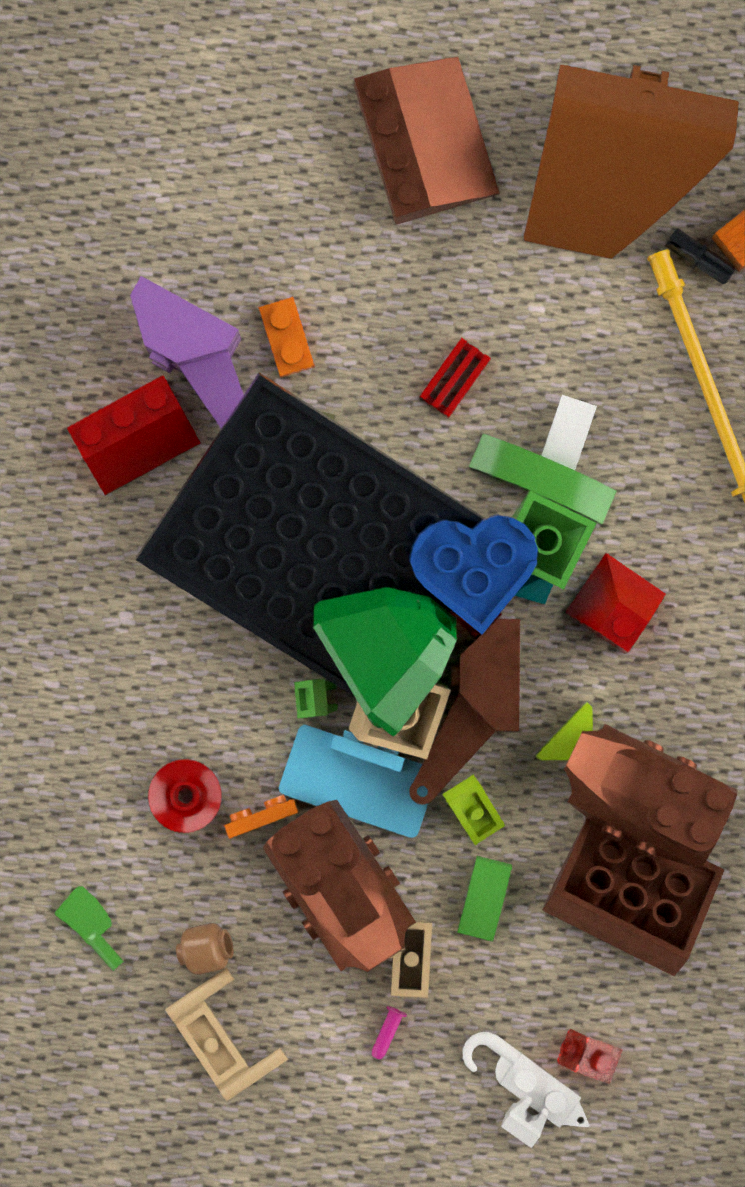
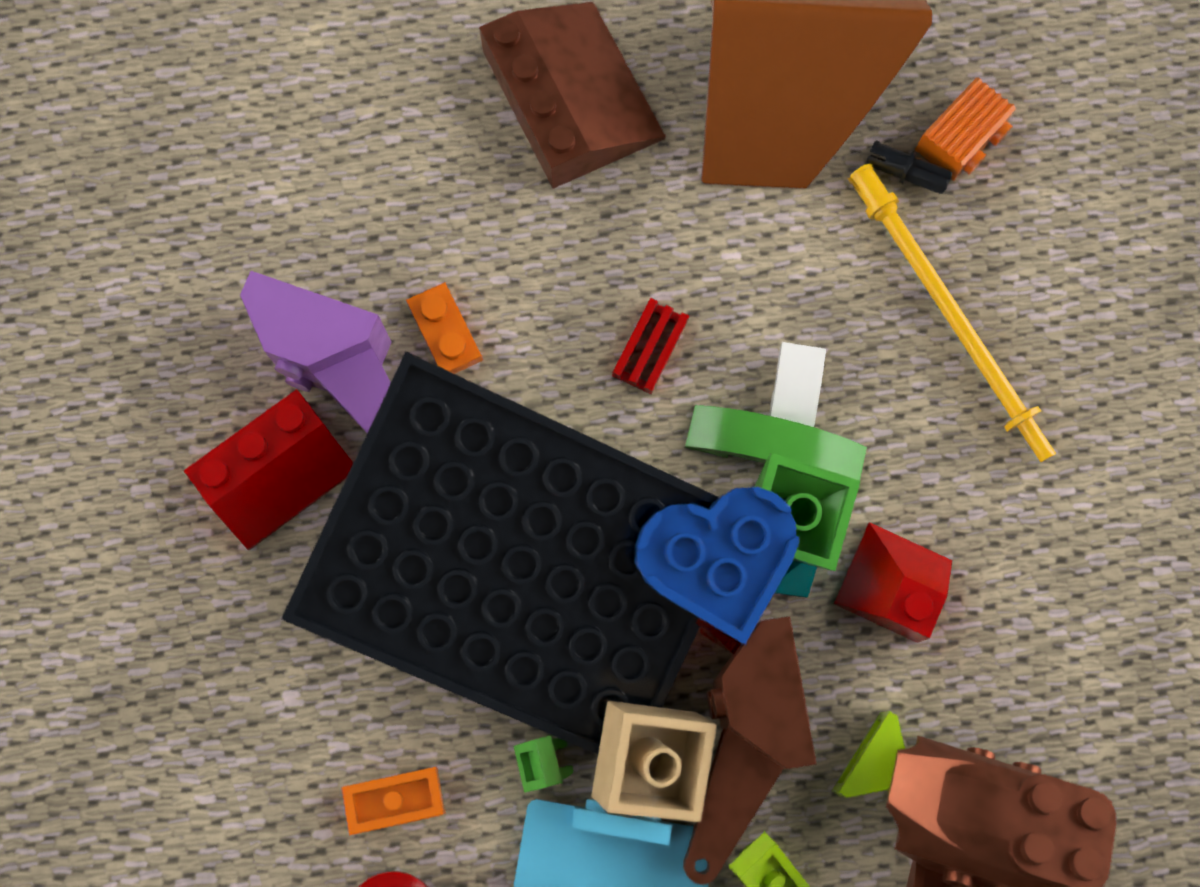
camera: 10 degrees left, 10 degrees down
(197, 708) = (393, 800): none -> orange plate
(387, 649) = (626, 686): green brick -> none

